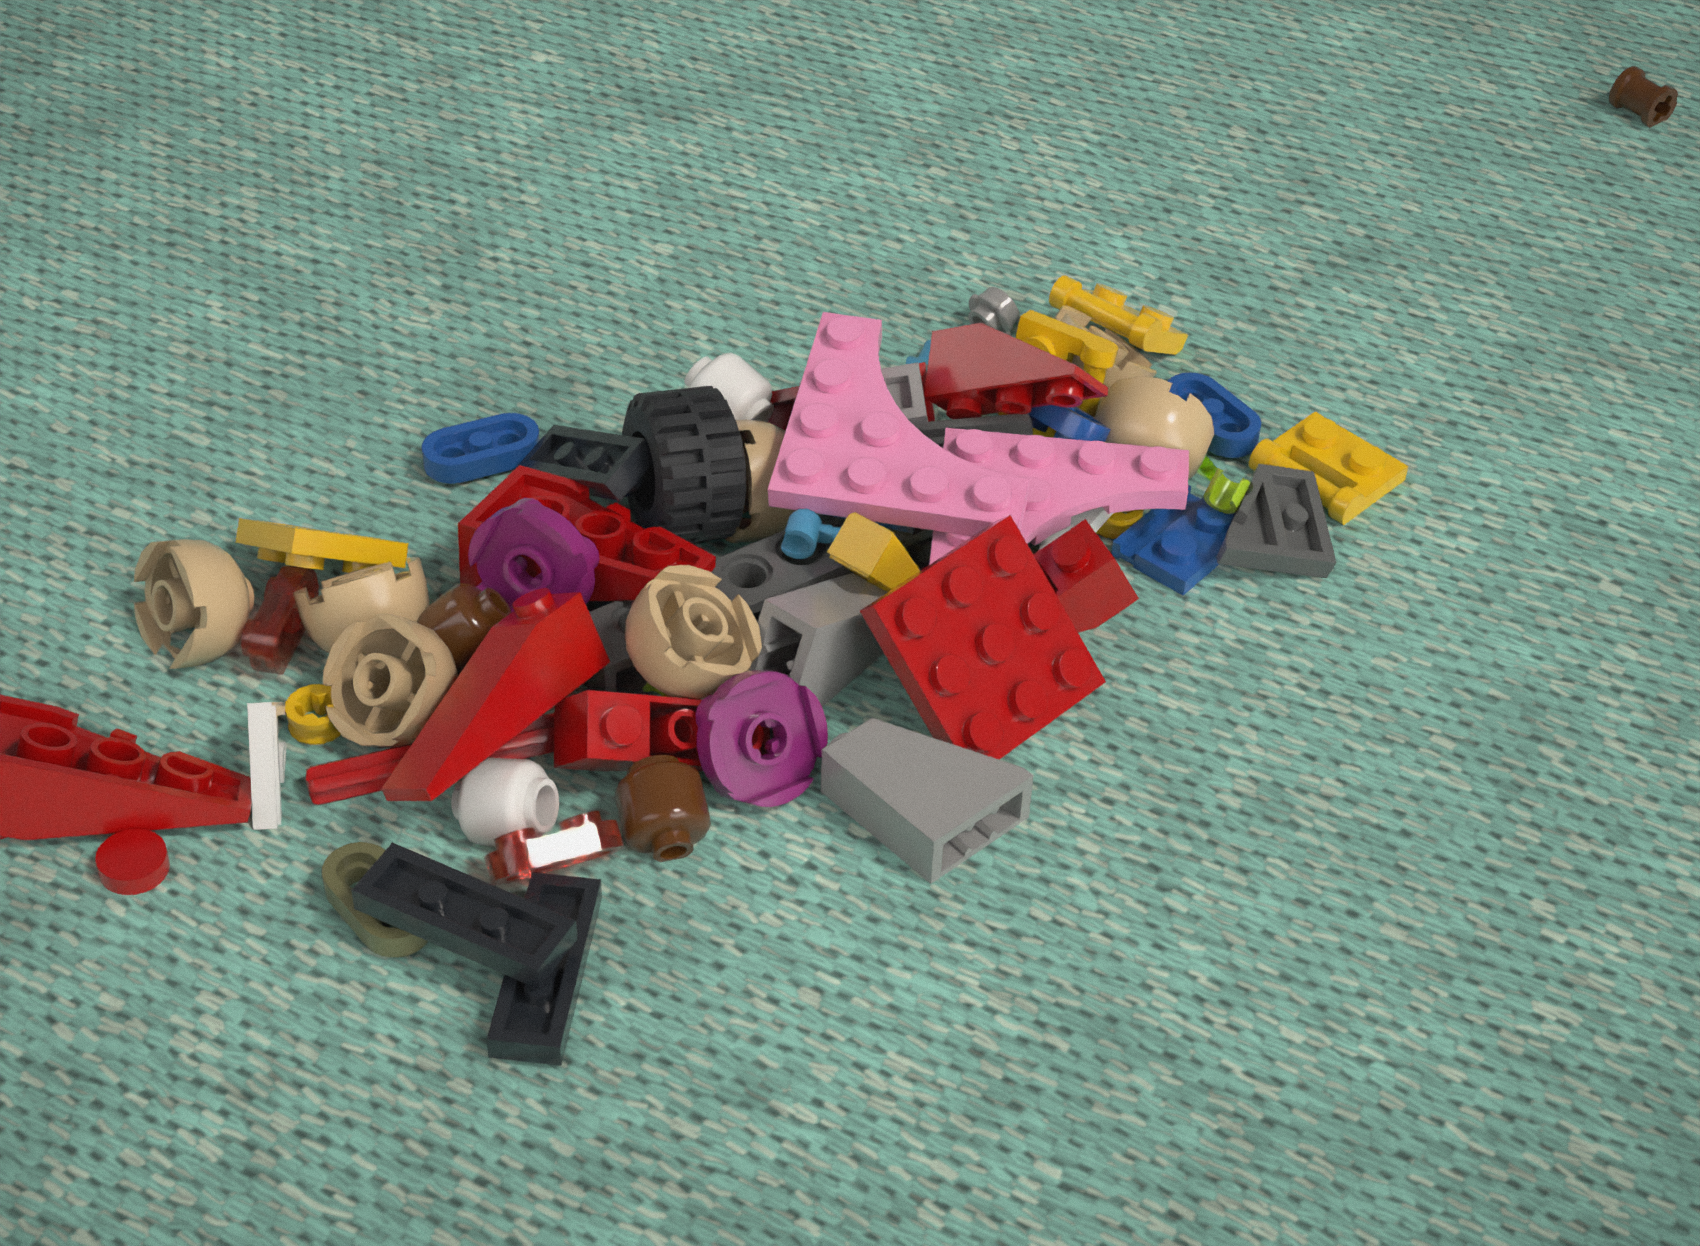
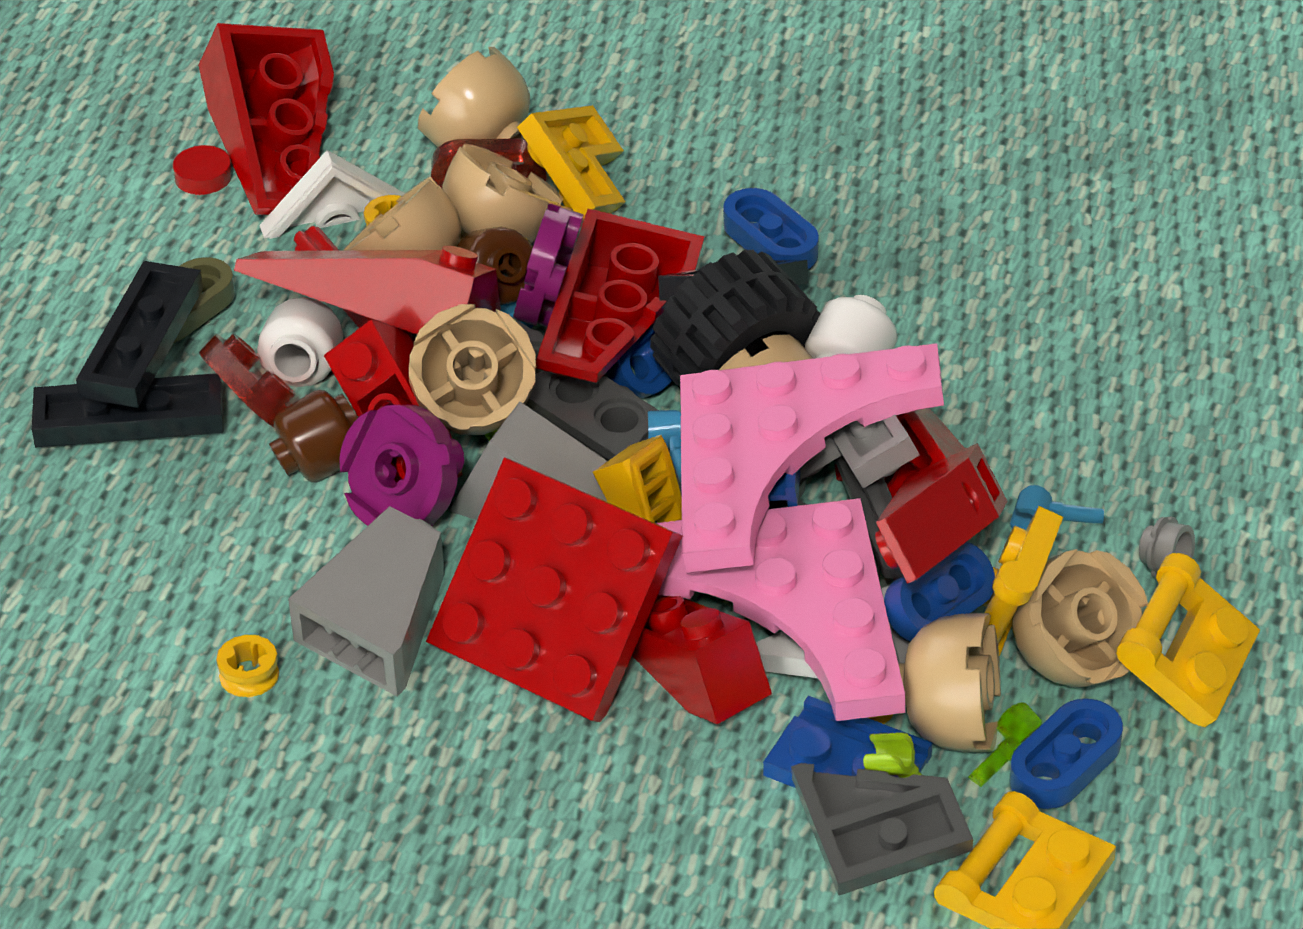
camera: 80 degrees right, 0 degrees up
(959, 927) = (250, 682): none -> yellow bush

